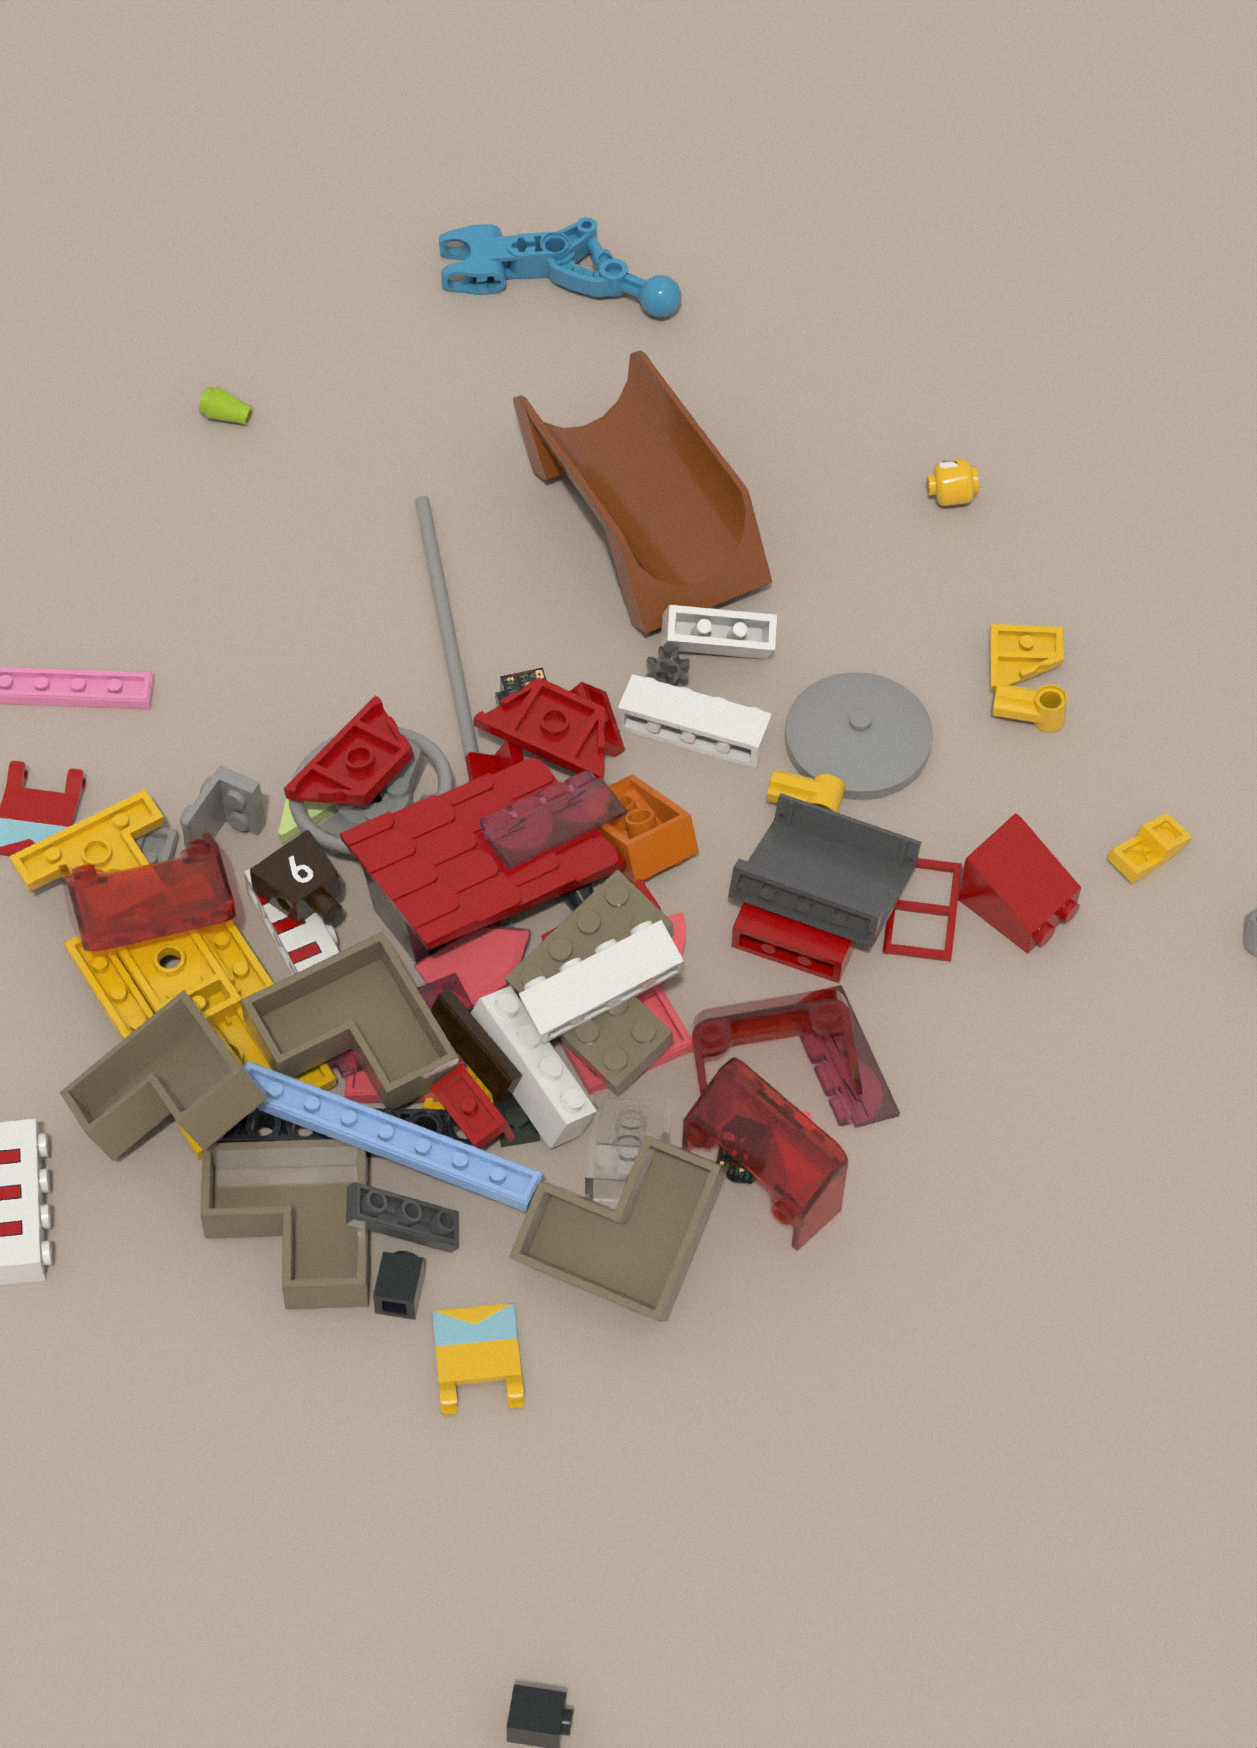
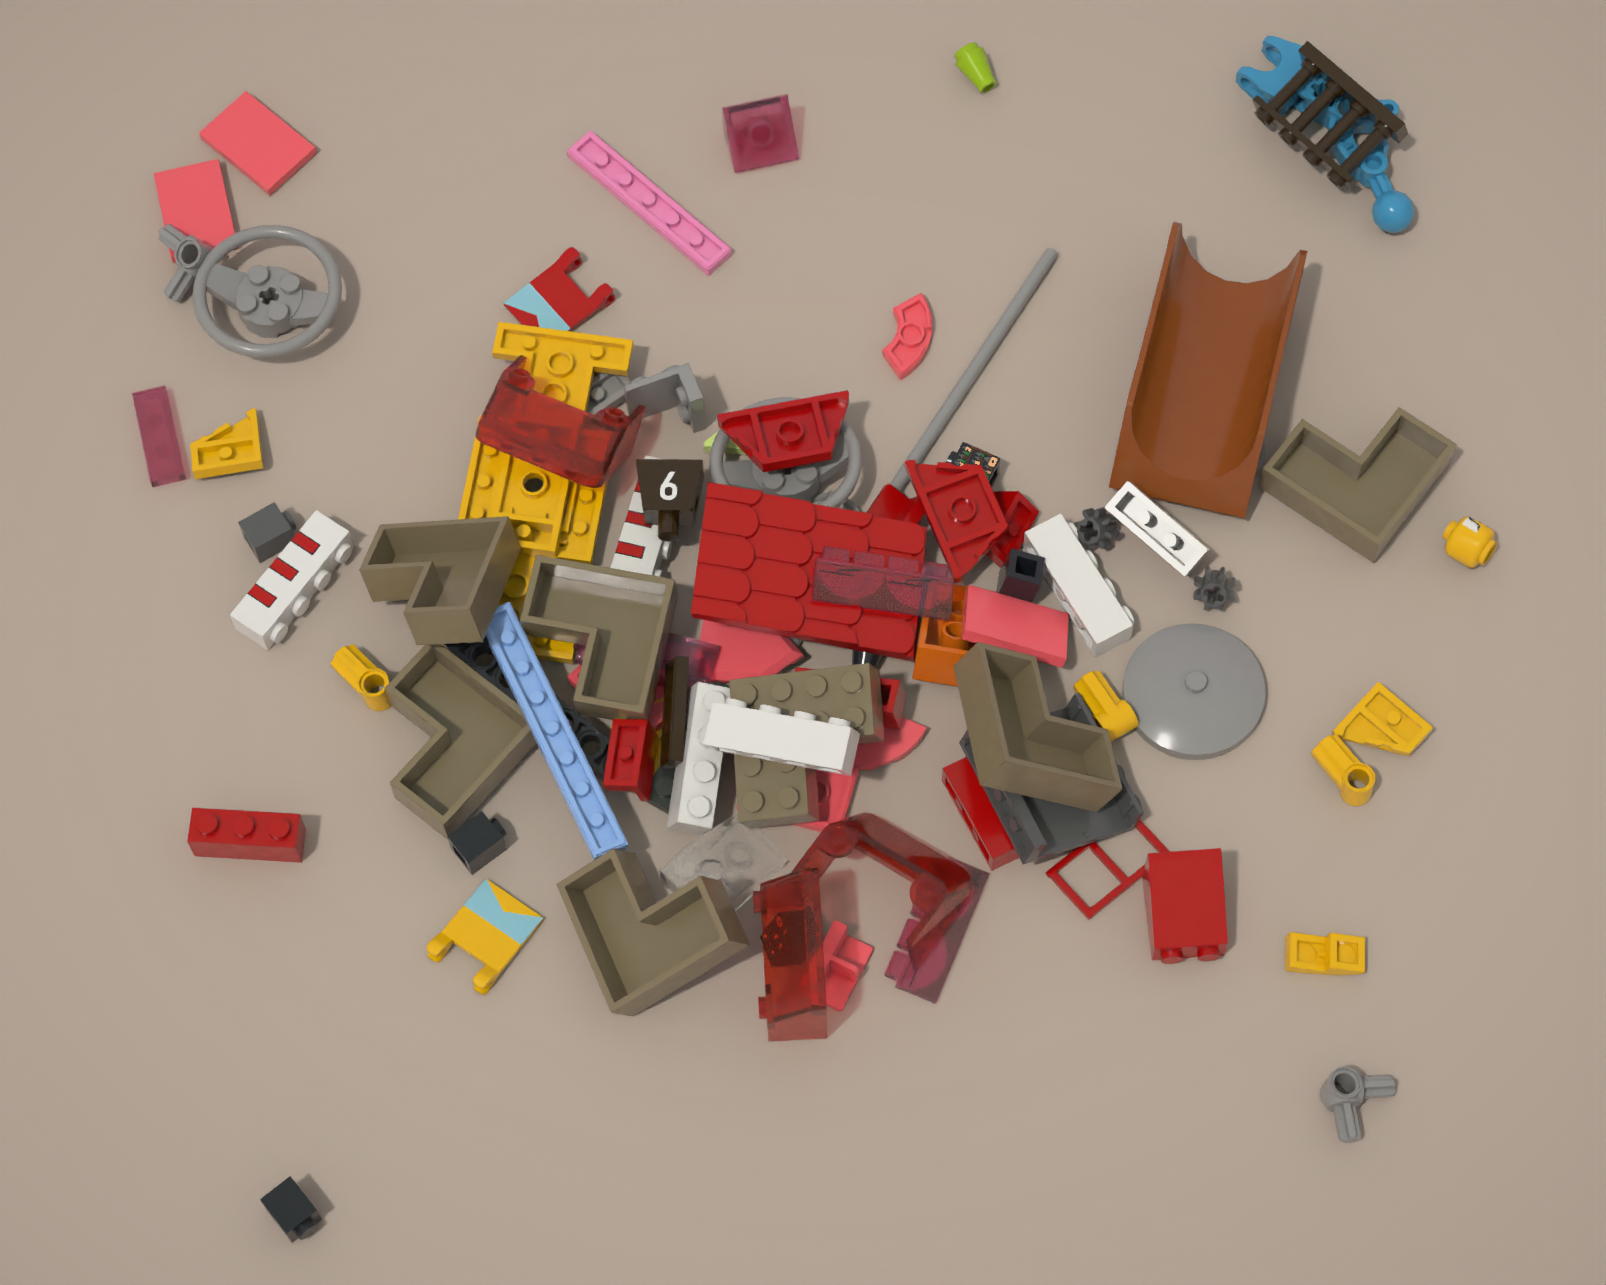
camera: 45 degrees right, 10 degrees up
(90, 568) = (759, 133): none -> clear pink slope
(160, 1230) = (362, 676): none -> yellow piece
(184, 1439) = (246, 835): none -> red brick
(370, 636) = (911, 338): none -> coral tile
(402, 1217) = (502, 783): dark grey tile -> none
(552, 225) = (1337, 85): none -> dark brown fence
(647, 745) = (1021, 575): none -> black brick
(681, 781) = (1015, 625): none -> coral tile
(789, 846) = (1018, 740): none -> dark tan piece
(801, 638) = (1207, 583): none -> dark grey gear
(841, 504) = (1353, 495): none -> dark tan piece

